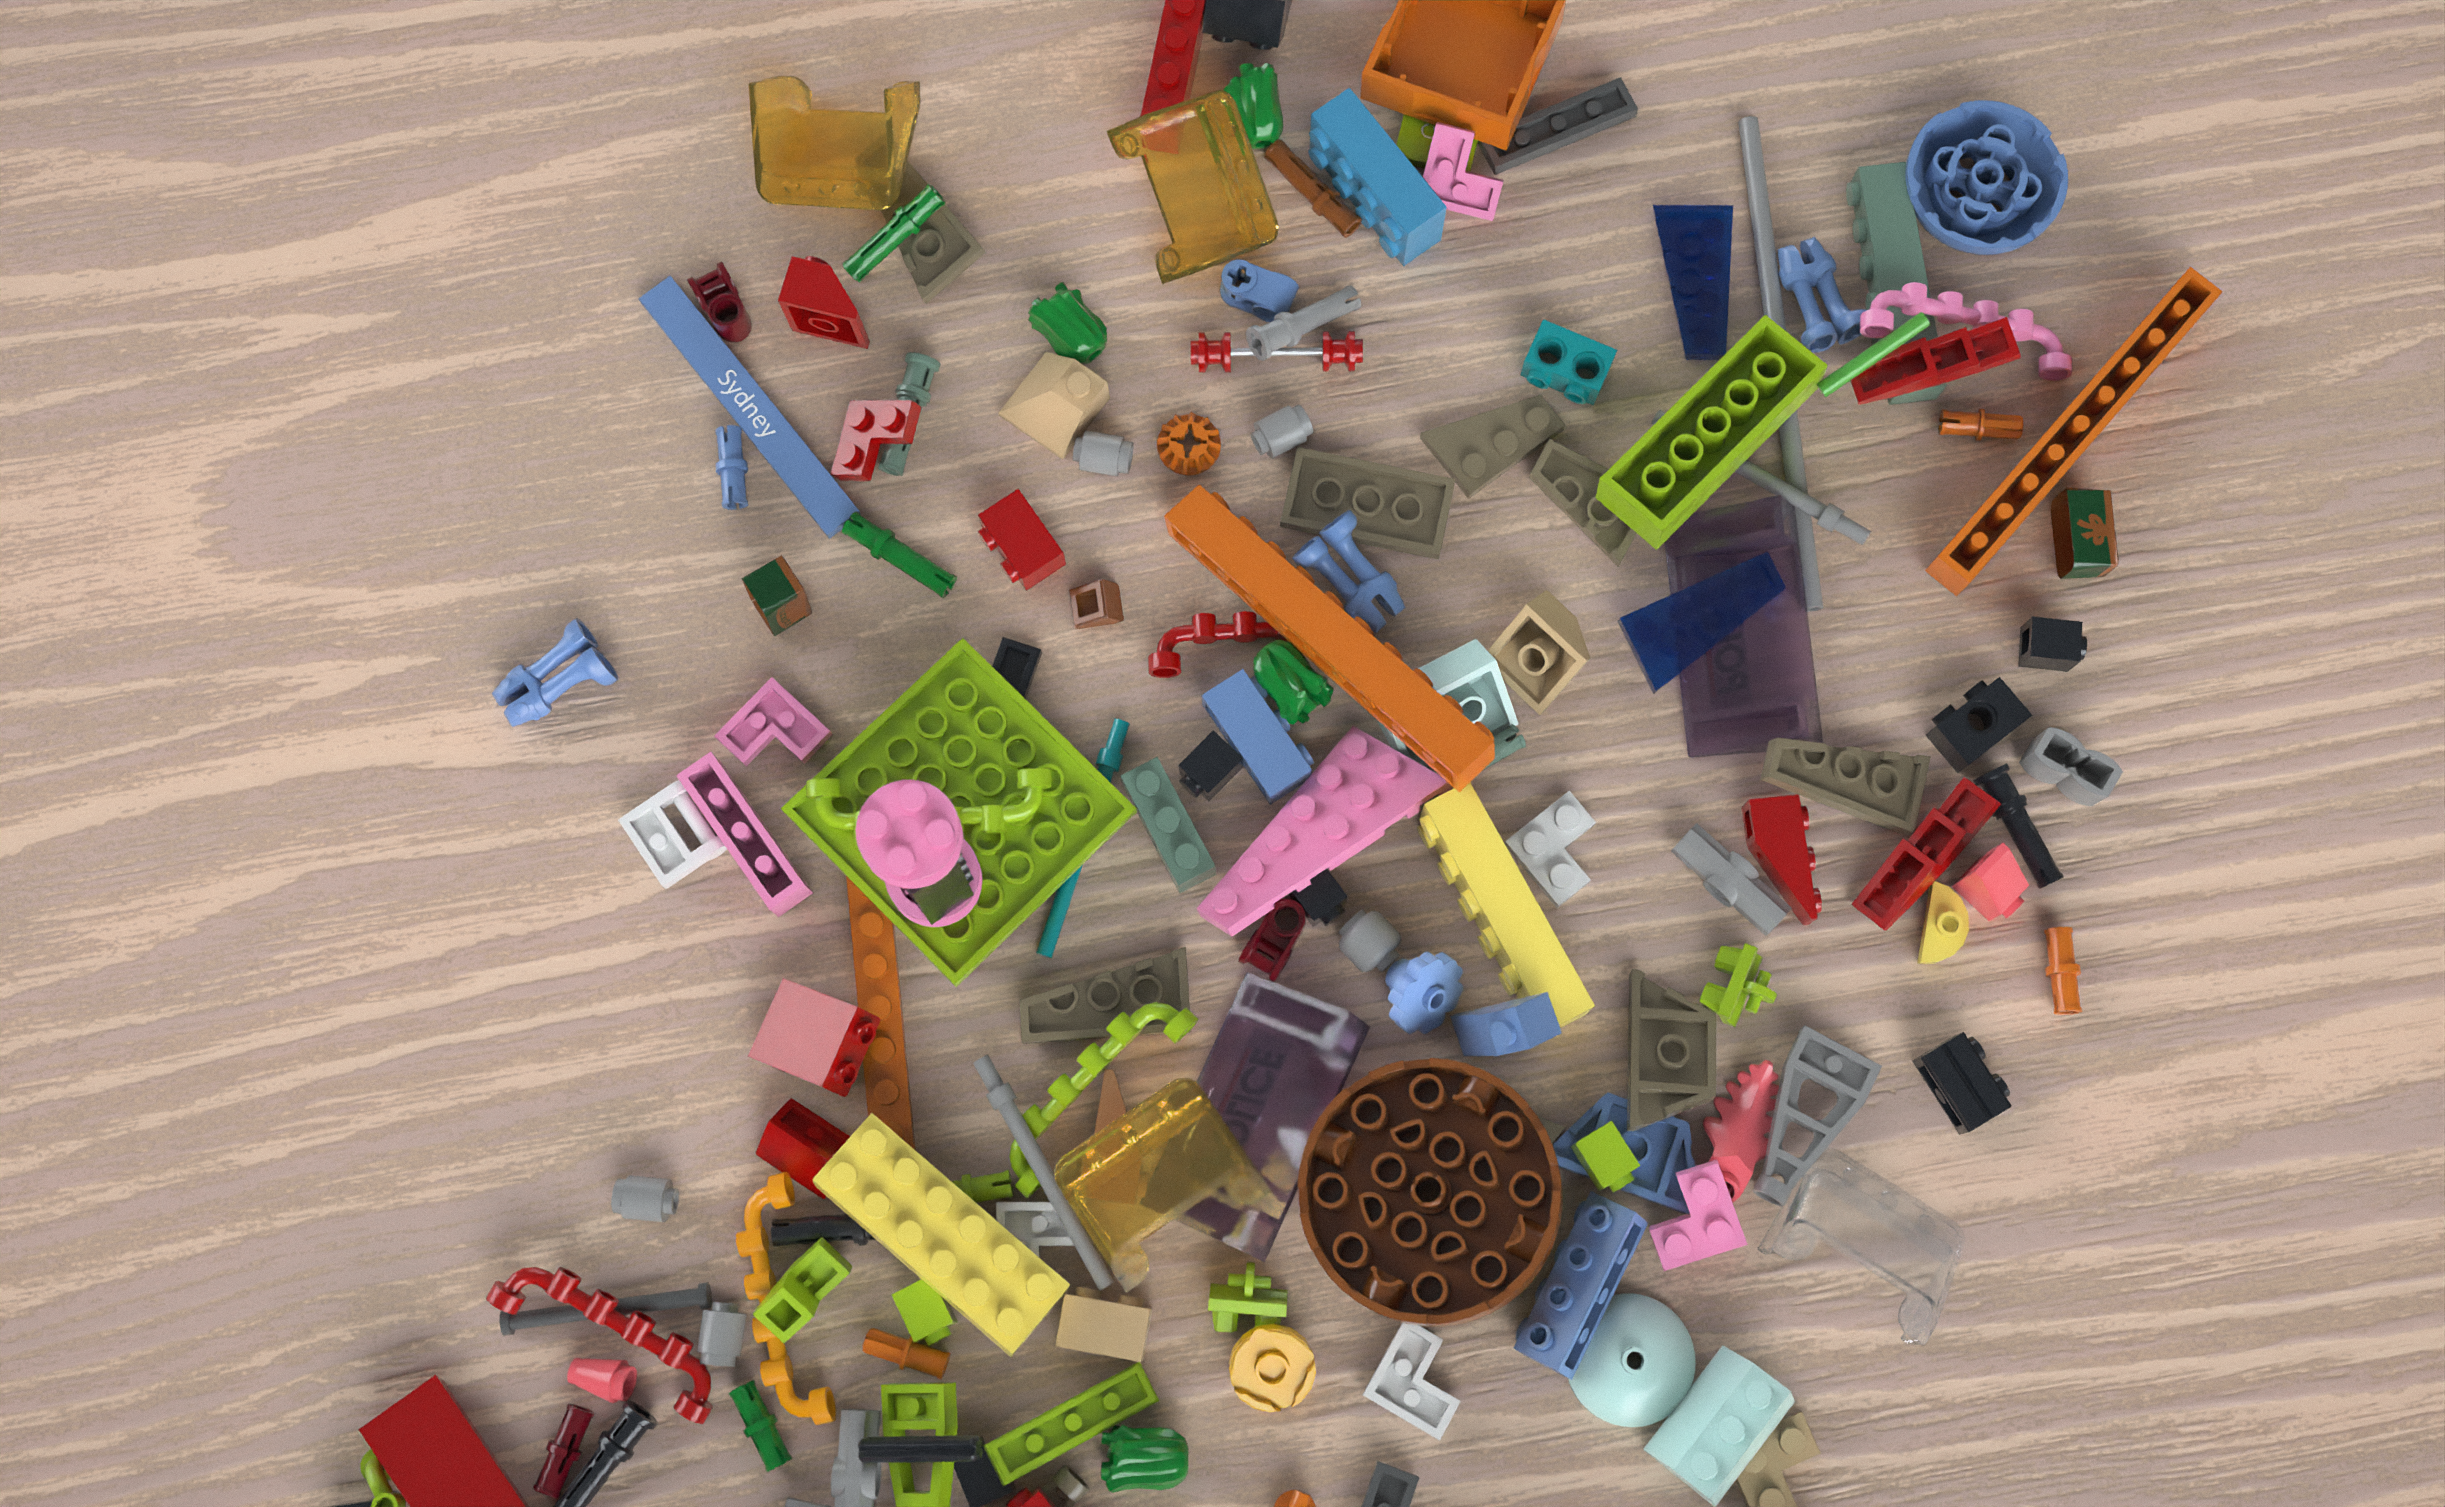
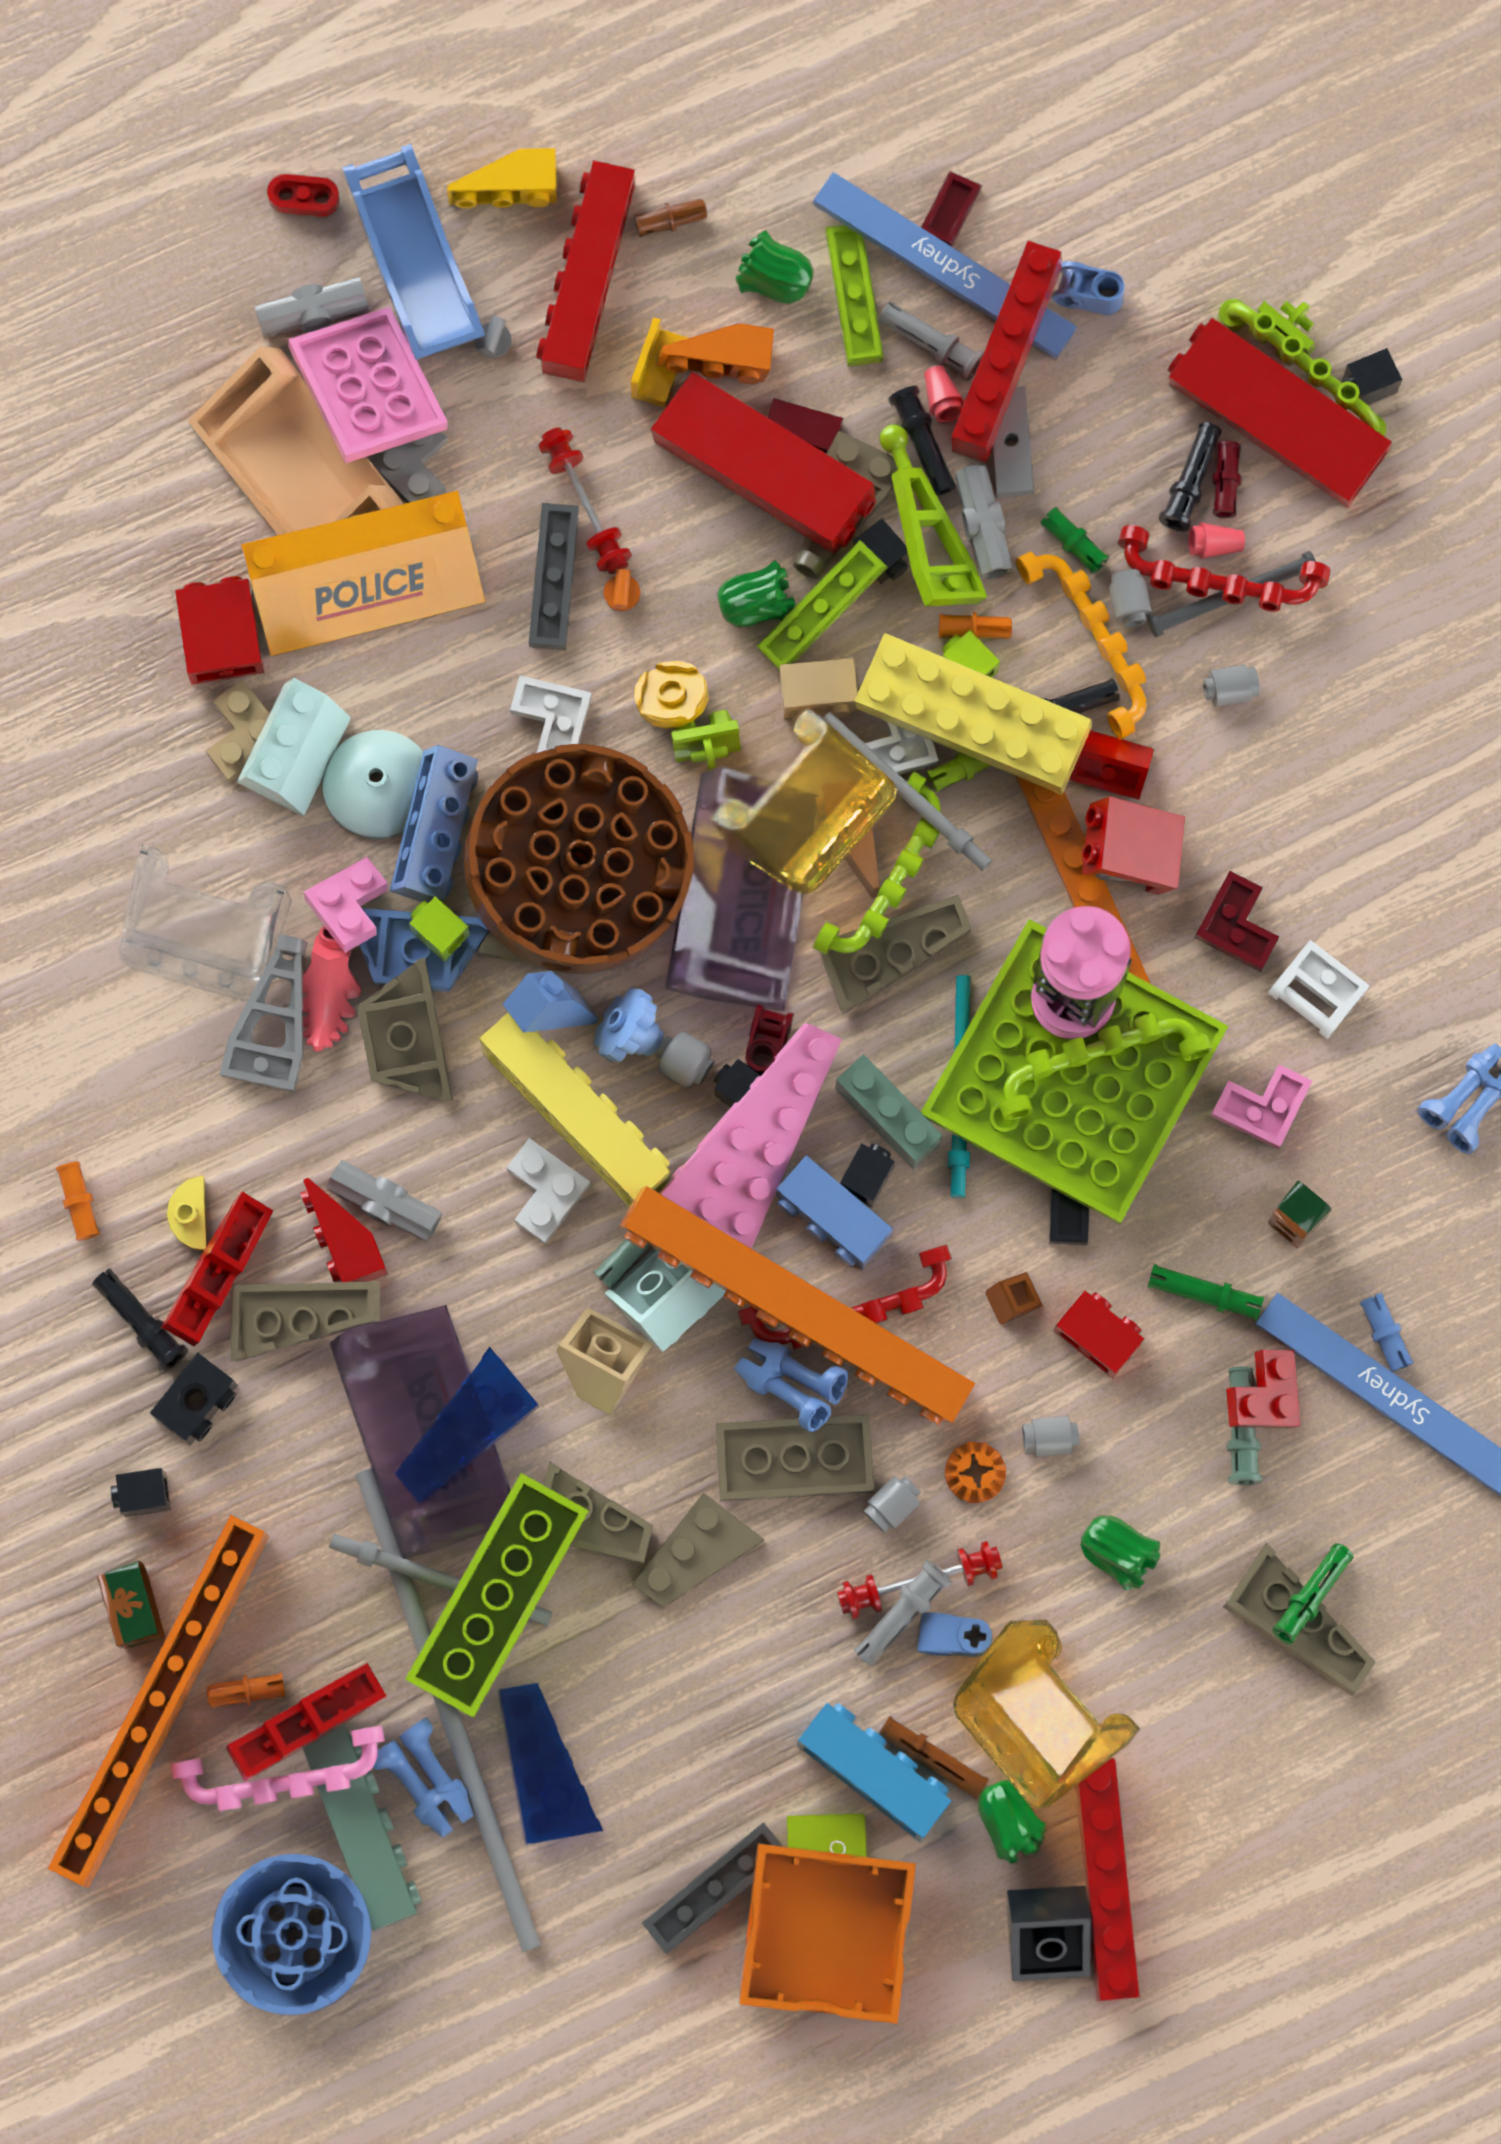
camera: 160 degrees right, 0 degrees up
(719, 299) = (1455, 1488): dark red piece -> none
(744, 834) = (1253, 1000): bright pink brick -> none
(744, 930) = (1227, 924): none -> dark red plate
(801, 1288) = (1079, 643): lime slope -> none
(819, 304) = (1354, 1501): red slope -> none
(827, 153) = (1403, 1662): clear yellow windscreen -> none
(920, 1449) = (936, 546): black axle -> none
(1056, 402) = (1111, 1476): tan slope -> none
(1290, 681) = (819, 1263): green piece -> none
(1447, 174) = (797, 1792): bright pink plate -> none
(1572, 353) = (642, 1653): teal brick -> none
(1743, 967) = (361, 1094): lime hips -> none
(1873, 354) = (364, 1706): bright green bar -> none
(1963, 1082) = (147, 1079): black brick -> none
(1993, 883) = (155, 1254): coral slope -> none
(2077, 772) = (116, 1379): light grey brick -> none

